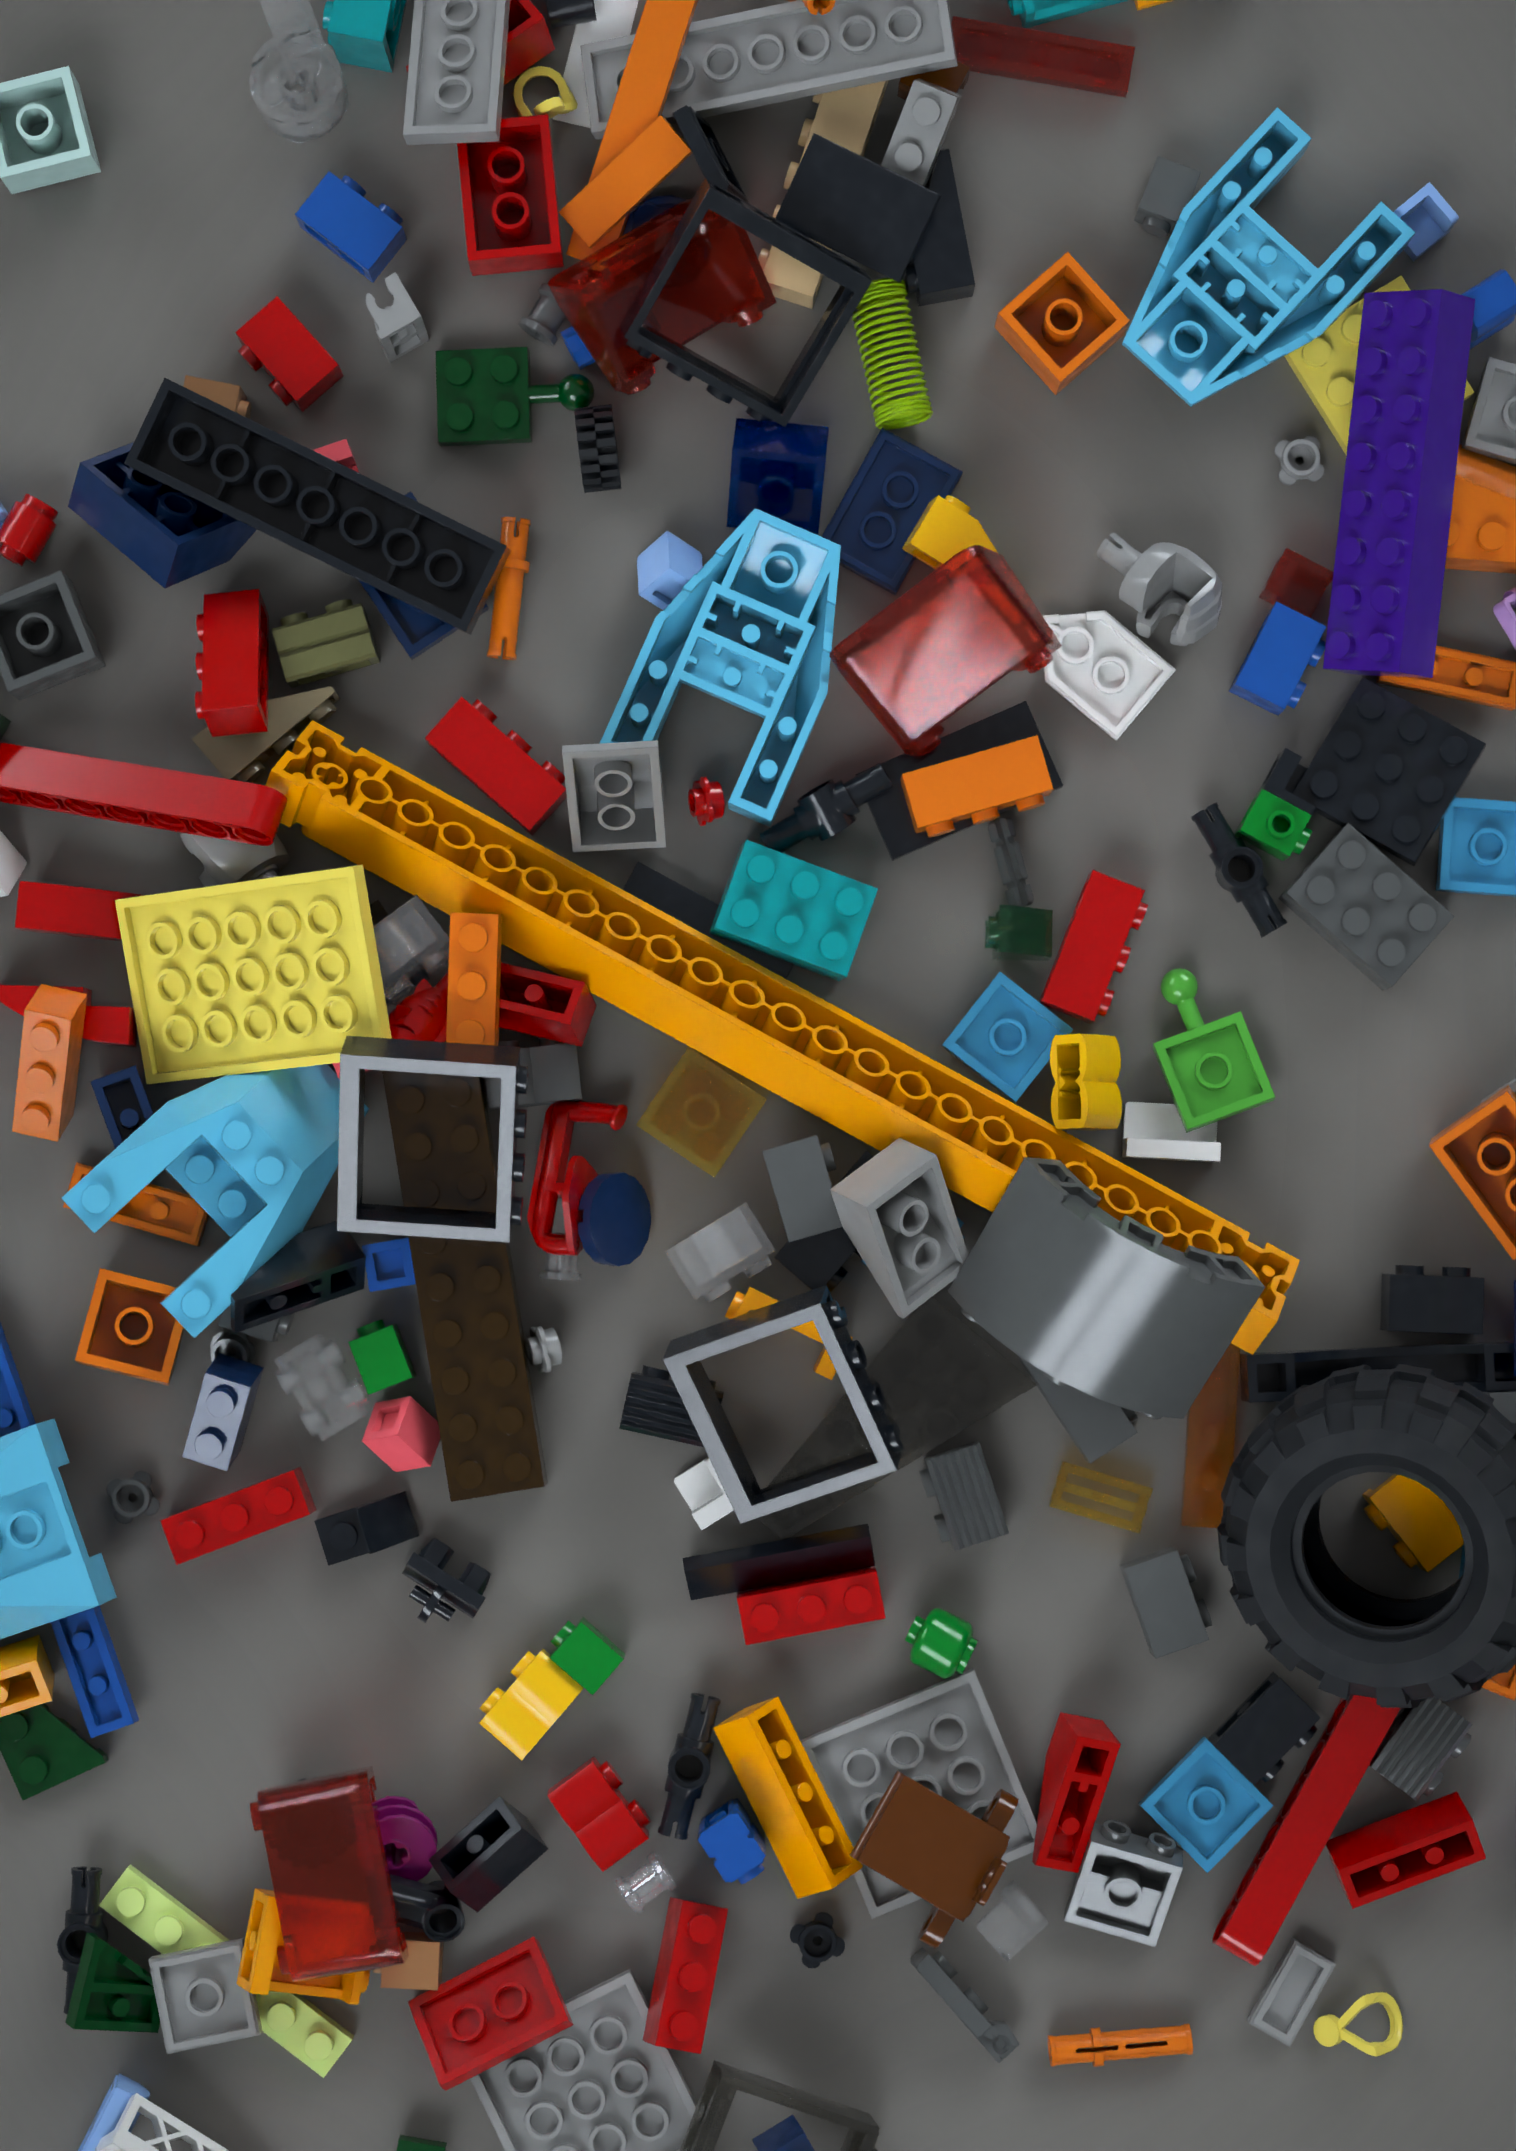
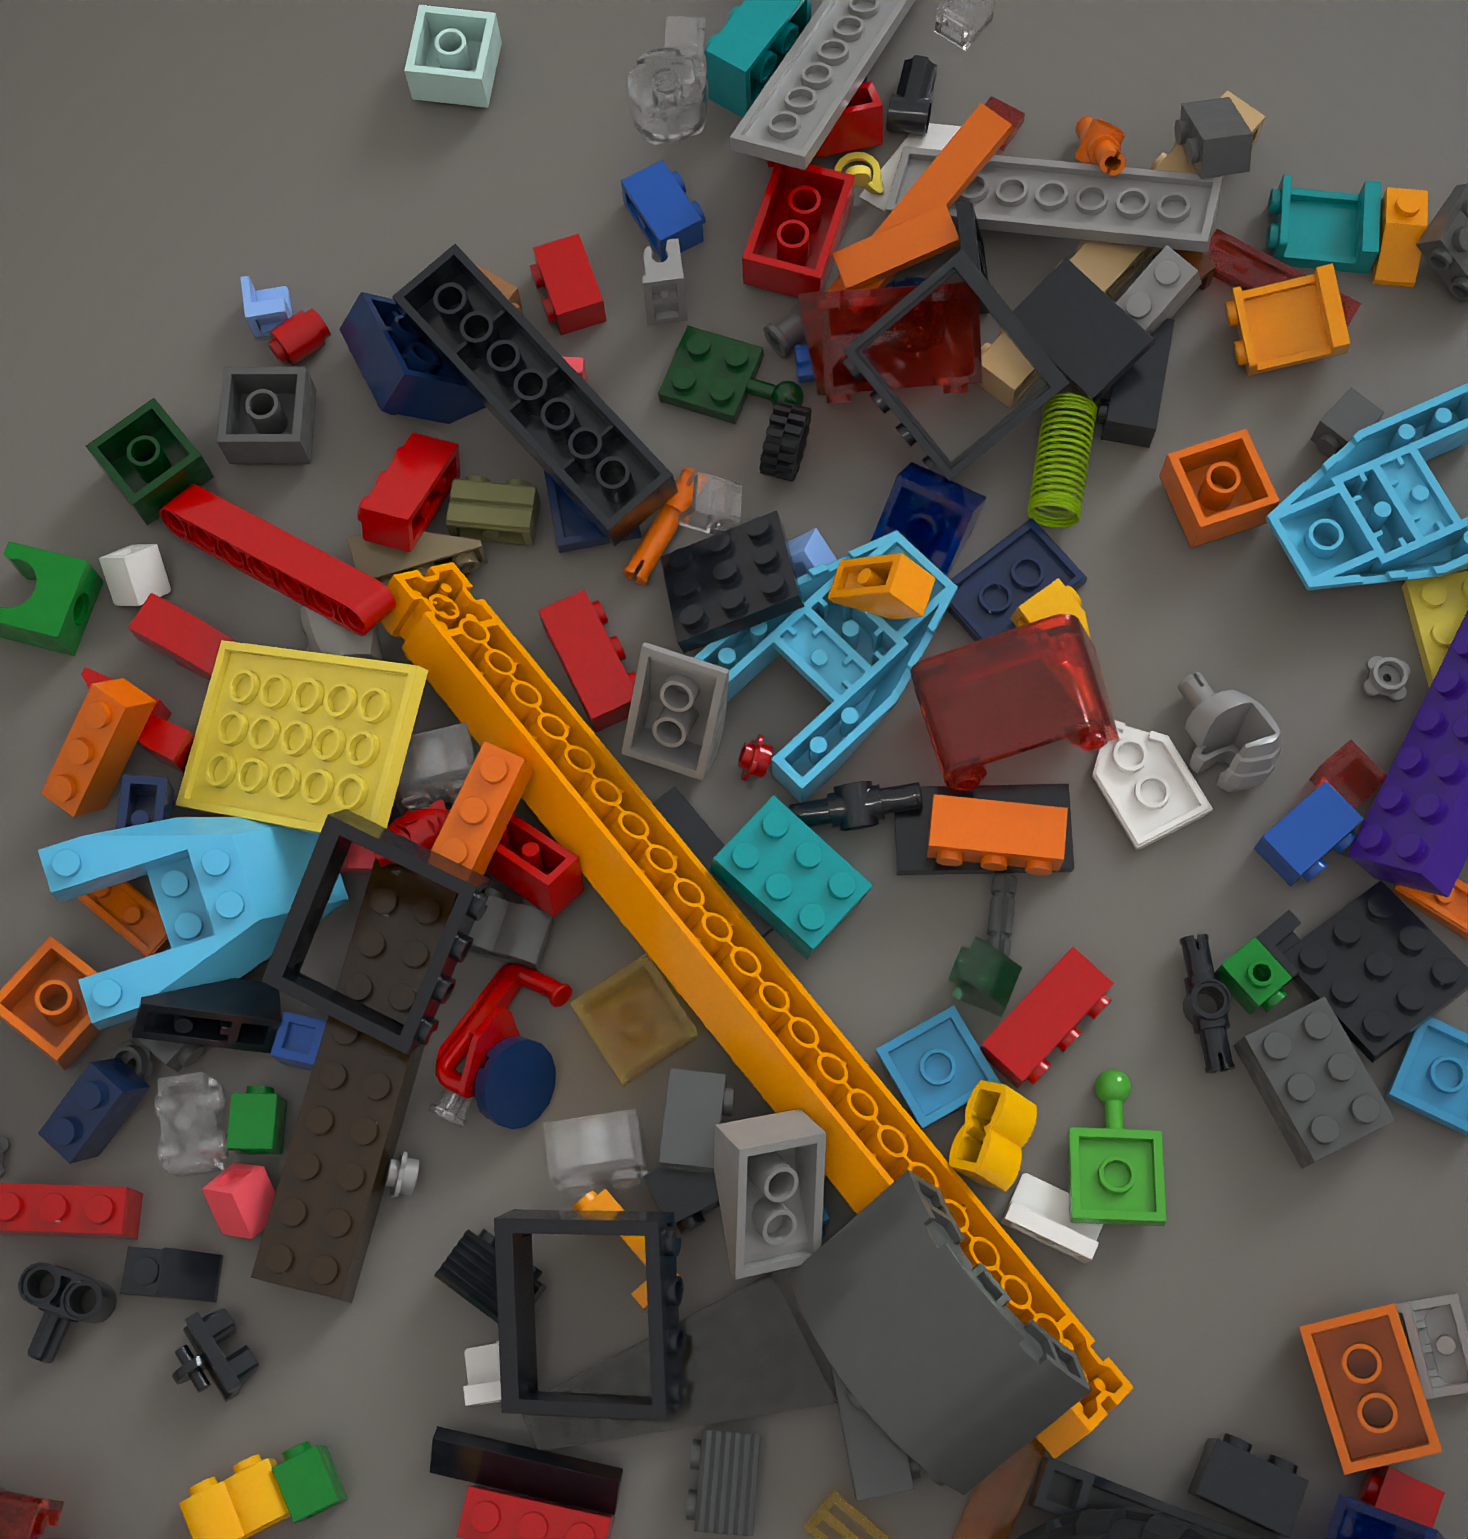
camera: 30 degrees right, 15 degrees down
(280, 1600) = (61, 1305): none -> black beam
(554, 548) = (714, 505): none -> clear panel
(608, 629) = (731, 582): none -> black plate
(767, 580) = (883, 586): none -> light orange slope
(1066, 102) = (1288, 322): none -> light orange panel

